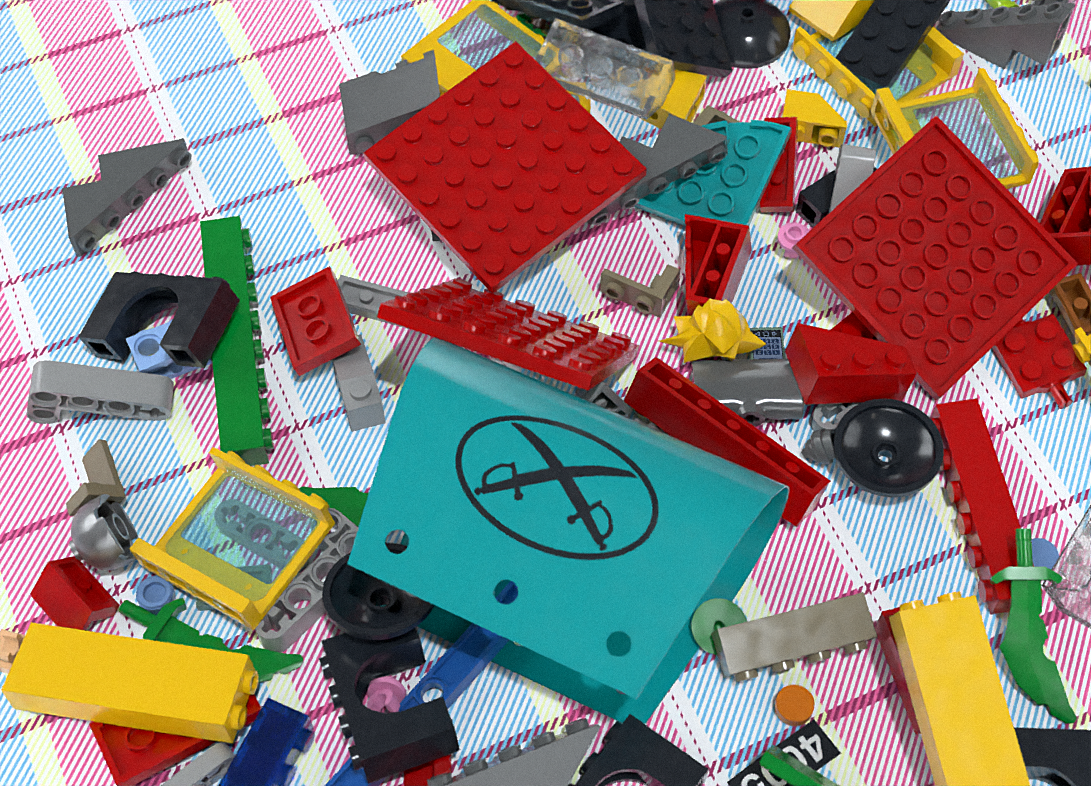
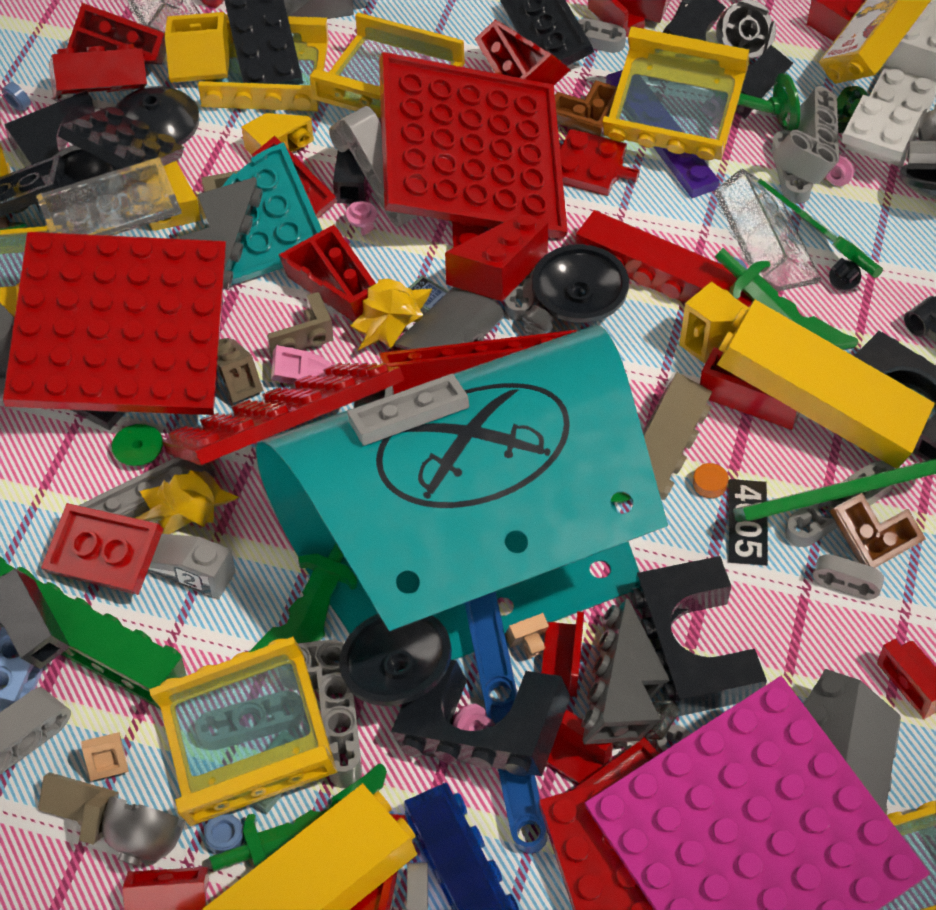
camera: 50 degrees left, 5 degrees down
(151, 464) = (104, 756): none -> light nougat tile
(397, 342) = (184, 501): none -> yellow hair
(431, 267) = (137, 445): none -> green piece
(503, 675) = (528, 634): none -> light nougat tile
(509, 717) = (564, 651): none -> red panel
(536, 412) = (408, 409): none -> light grey plate
(556, 273) = (237, 370): none -> dark tan bracket
(604, 311) = (292, 364): none -> bright pink plate
(952, 570) = (708, 320): none -> yellow slope

